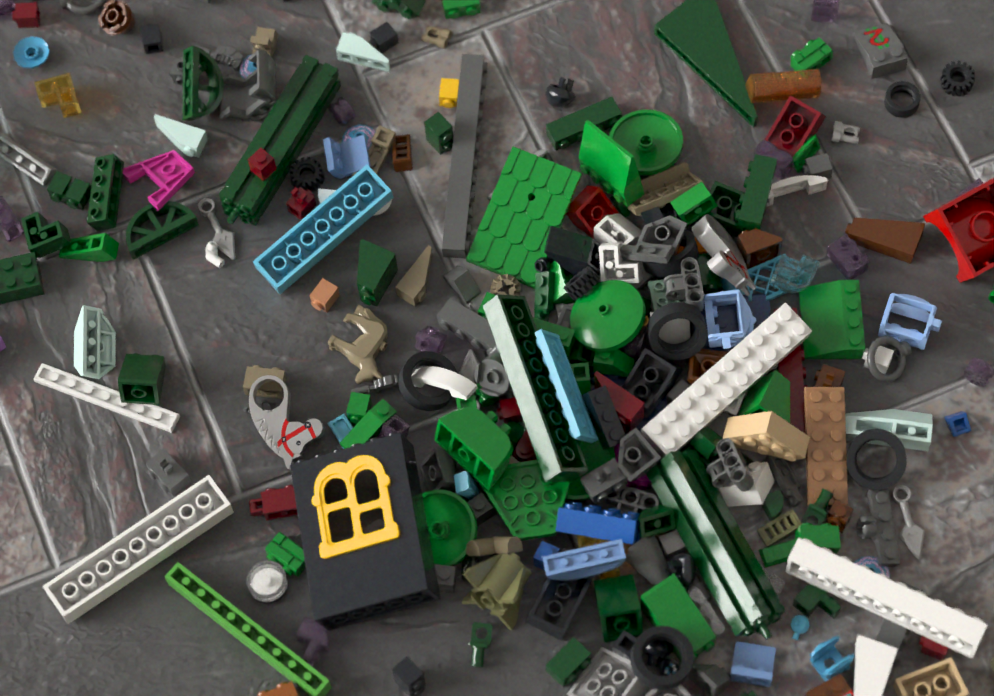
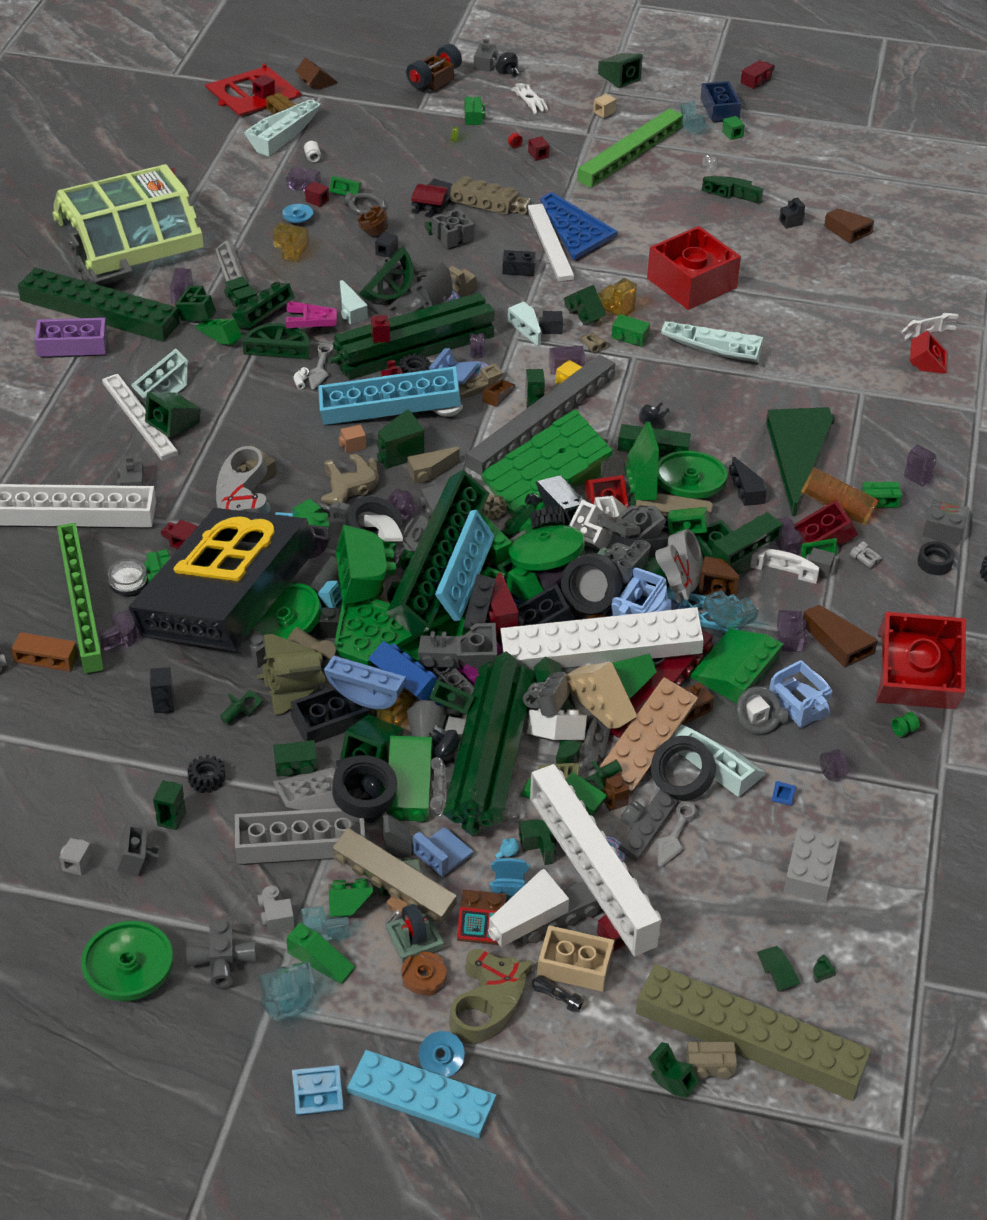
camera: 30 degrees right, 20 degrees down
(430, 77) = (561, 355): none -> clear purple brick
(698, 119) = (749, 485): none -> black slope

